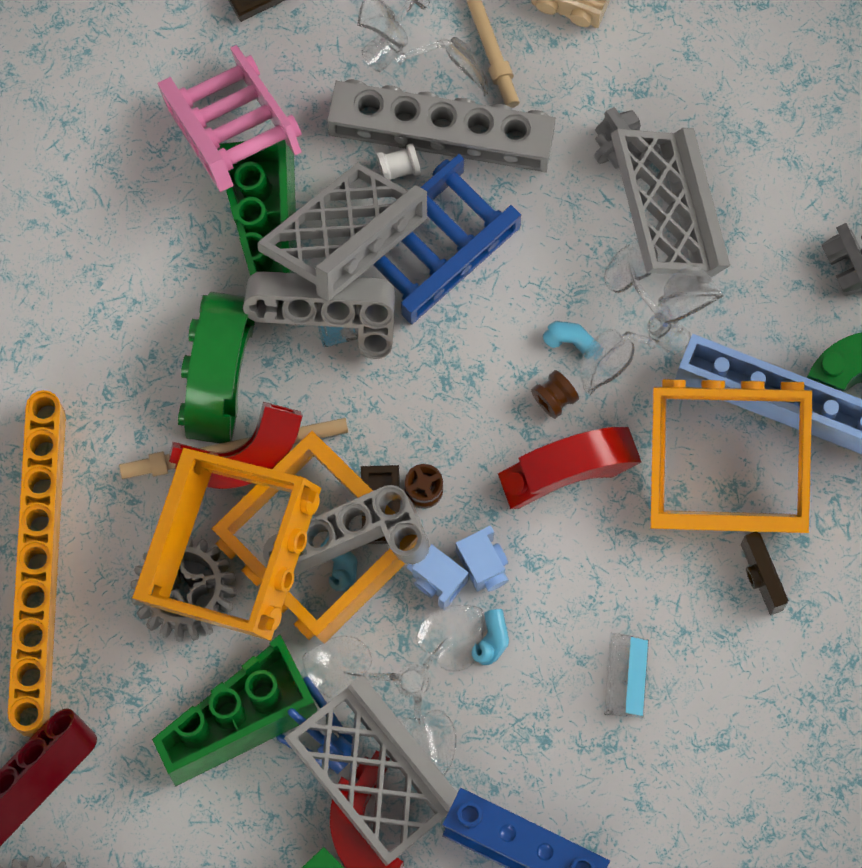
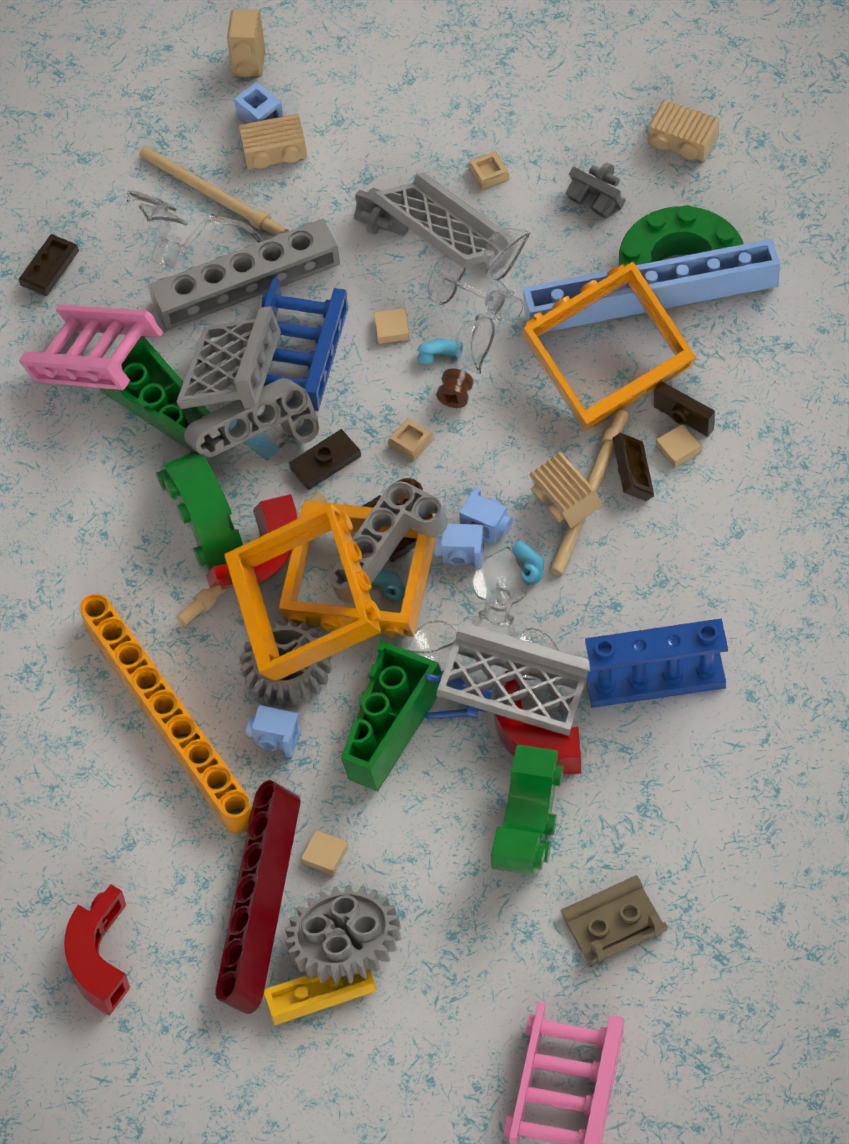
camera: 30 degrees left, 15 degrees down
(82, 815) = (324, 852): none -> tan tile
(123, 654) = (275, 729): none -> light blue brick
(377, 385) = (324, 459): none -> dark brown plate
(399, 163) = (234, 311): white bush -> none
(475, 419) = (410, 439): none -> tan tile
(545, 278) = (391, 325): none -> tan tile
(568, 461) = (495, 417): red arch -> none
(577, 588) = (565, 491): none -> tan brick
(626, 676) = (639, 529): slope -> none
(667, 603) = (633, 467): none -> dark brown plate
(668, 557) = (594, 480): none -> tan bar
(732, 607) = (678, 445): none -> tan tile
(766, 163) = (488, 170): none -> tan tile

